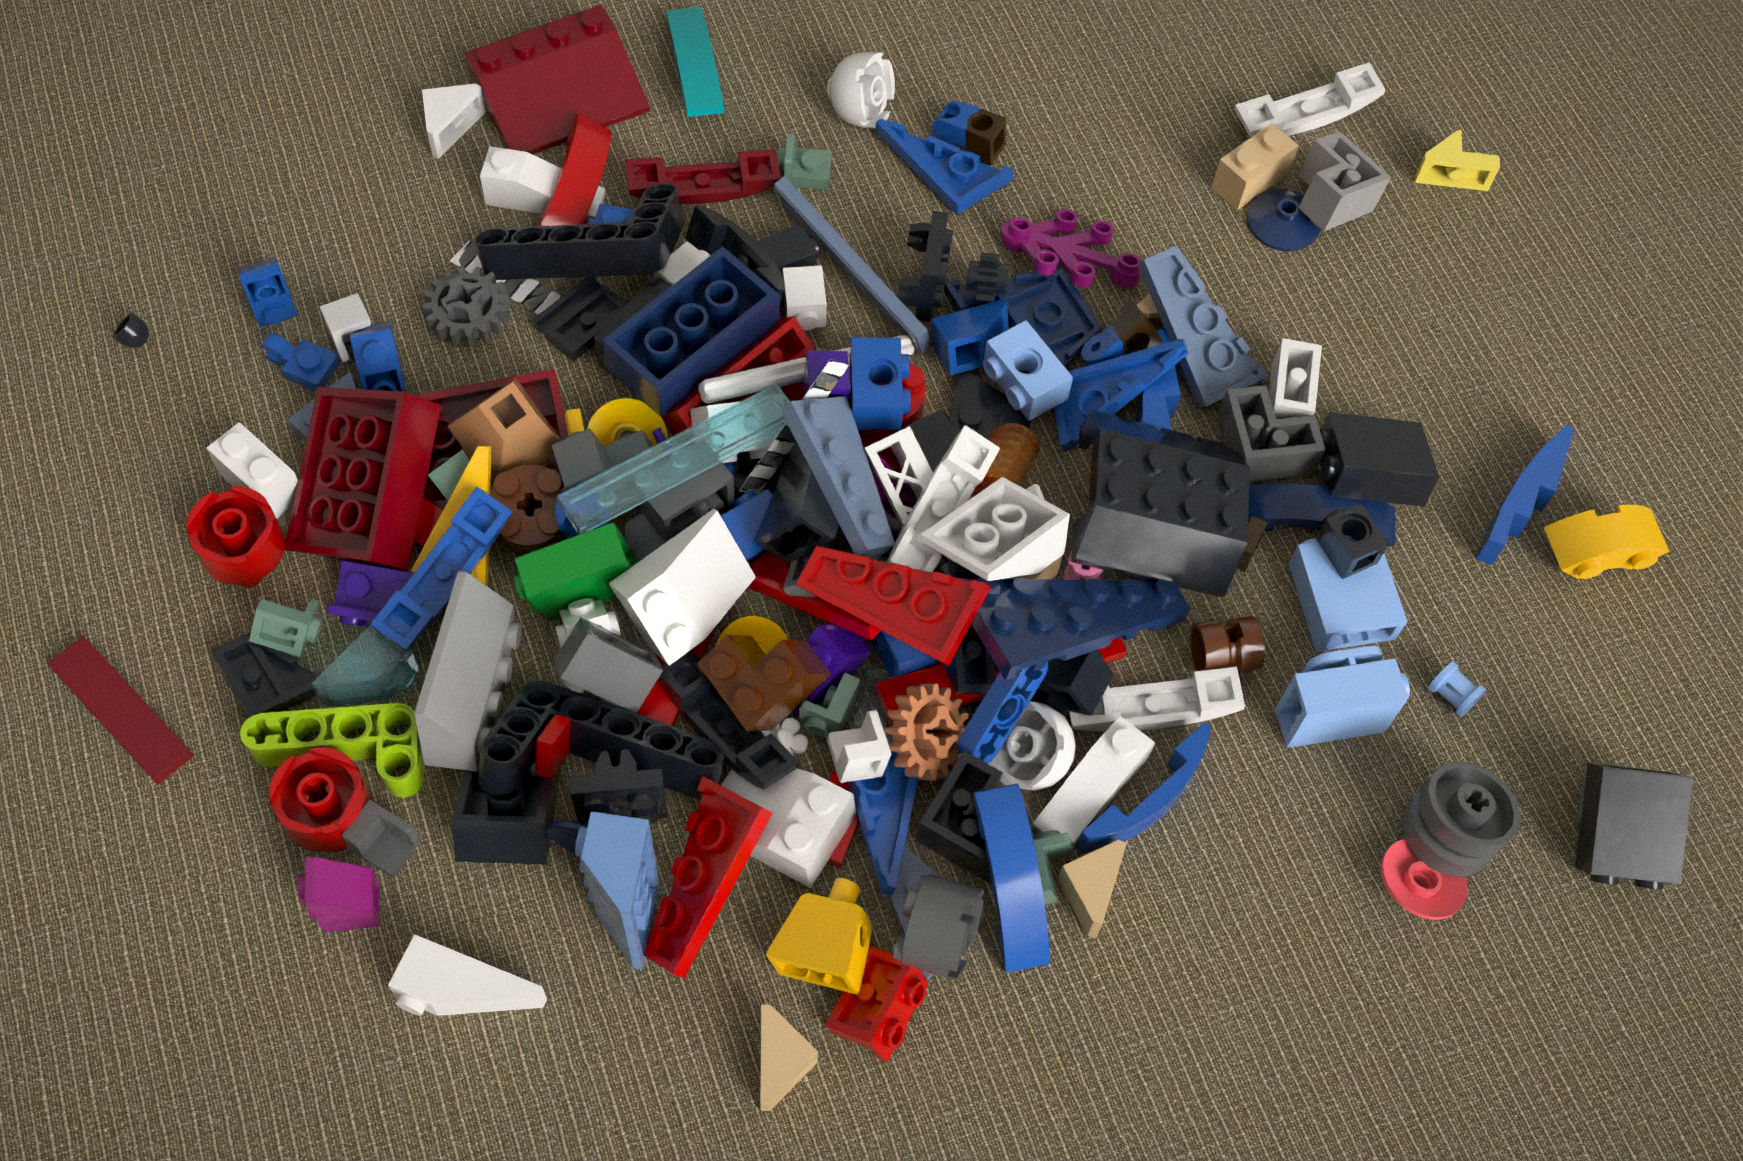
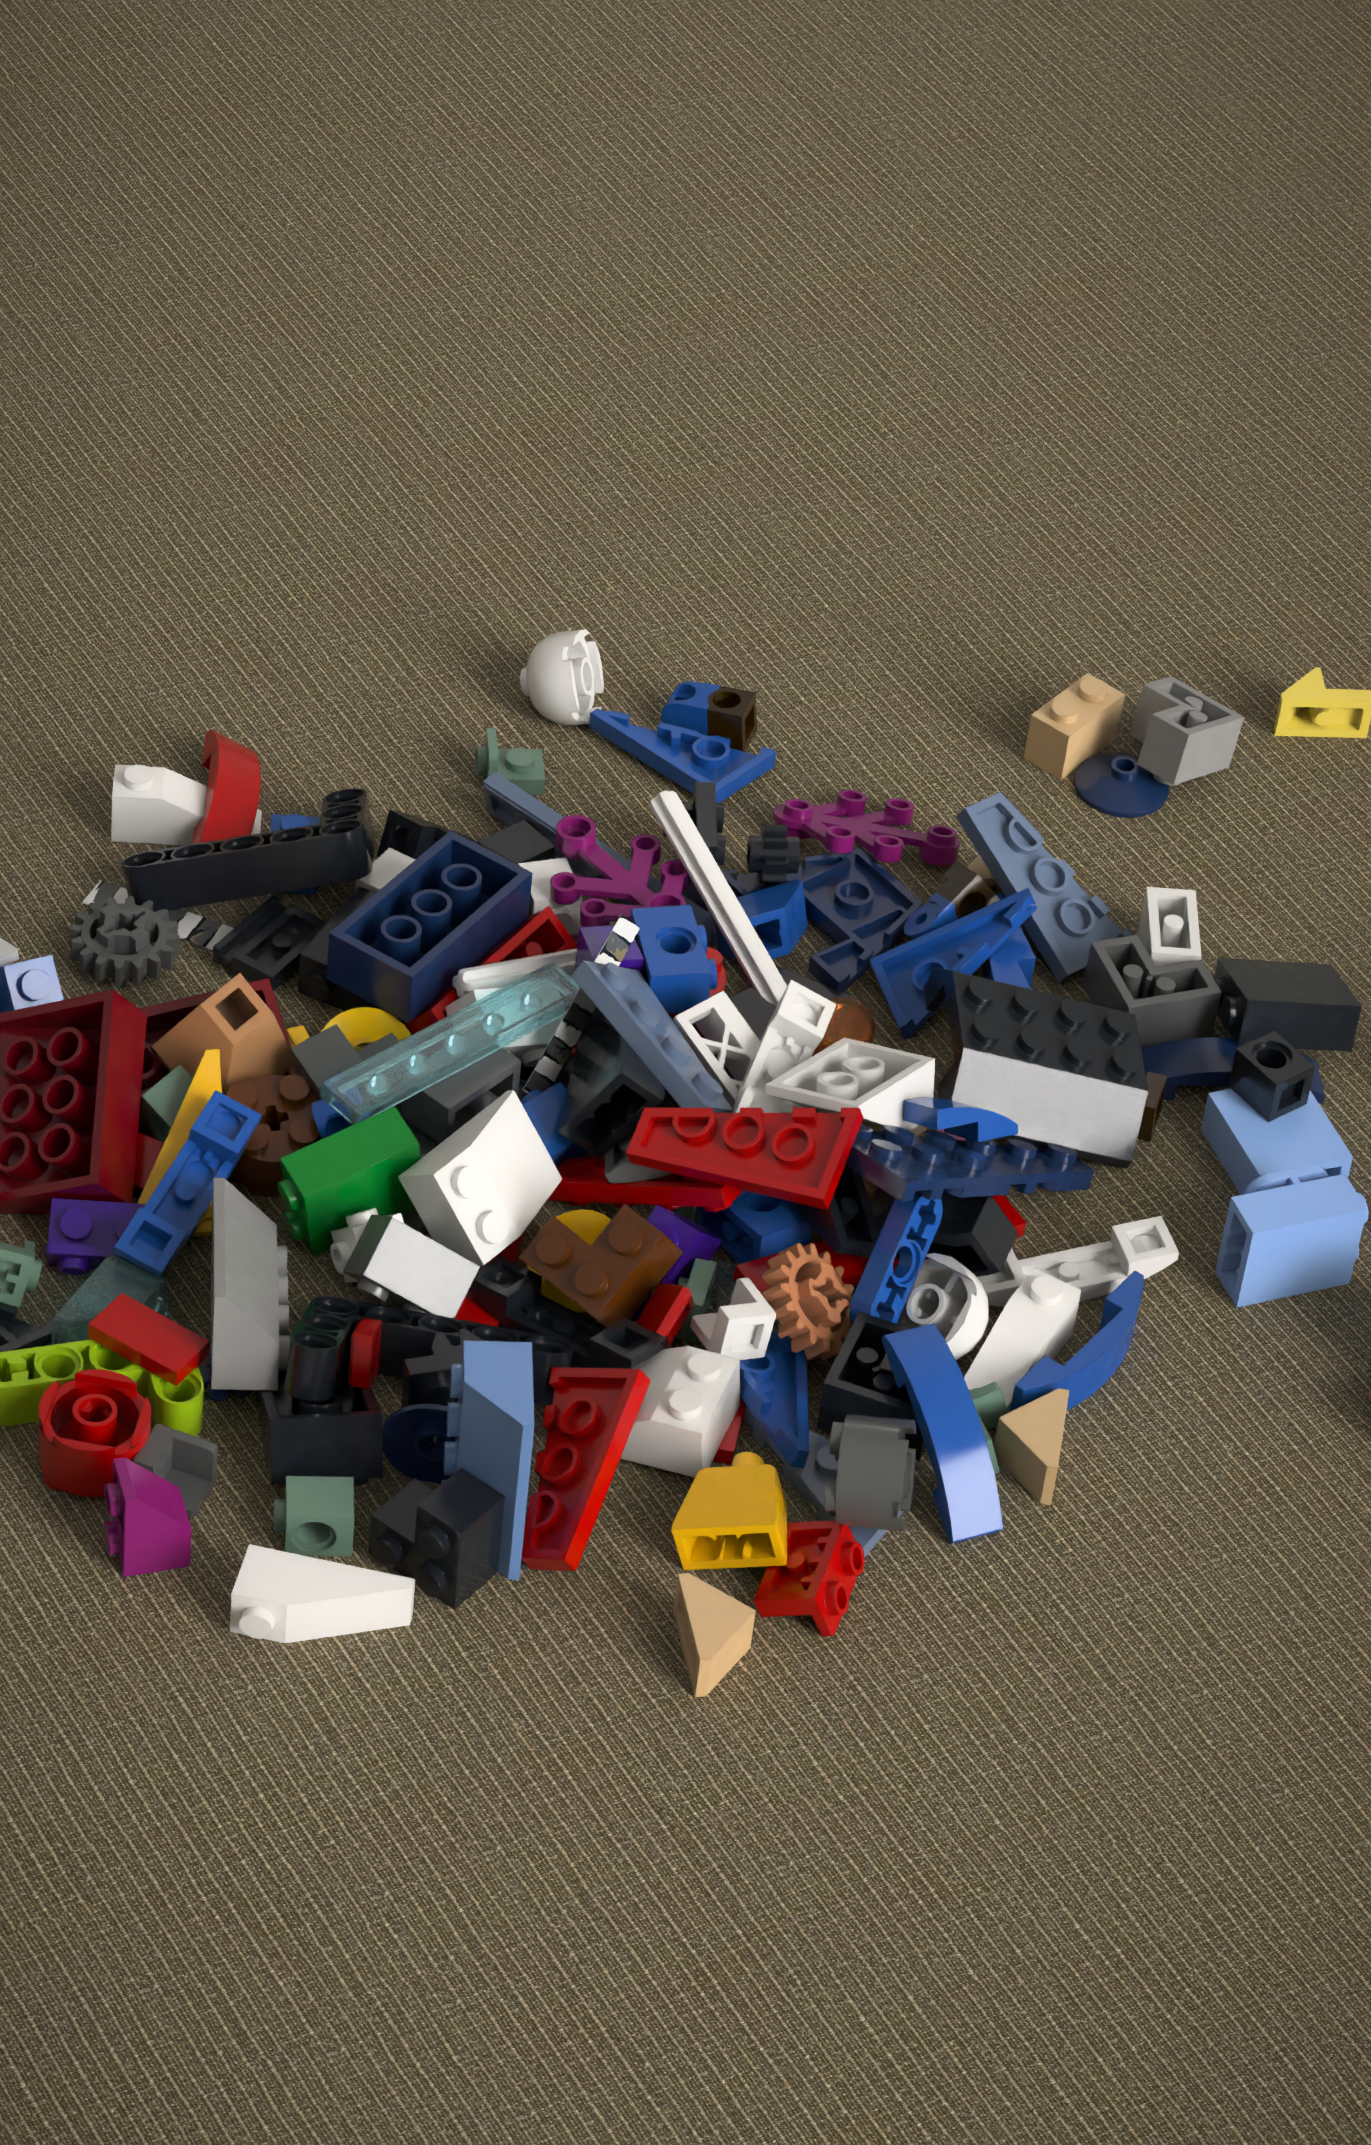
camera: 10 degrees left, 20 degrees down
(378, 716) = (149, 1339): none -> red tile
(451, 113) = (43, 742): white slope -> none
(484, 897) = (316, 1515): none -> sand green brick
(550, 74) = (165, 691): dark red slope -> none
(575, 936) = (441, 1536): none -> black brick
(695, 62) = (344, 664): teal slope -> none
(707, 182) = (442, 782): dark red slope -> none
(806, 729) = (667, 1311): none -> red slope
(831, 254) = (578, 841): none -> magenta plant
(933, 328) = (718, 896): none -> white axle
(1024, 350) = (844, 945): light blue brick -> none
(1077, 566) = (958, 1119): none -> blue slope
(1232, 645) = (1153, 1194): reddish brown wheel -> none
(1315, 107) = (1174, 643): white slope -> none

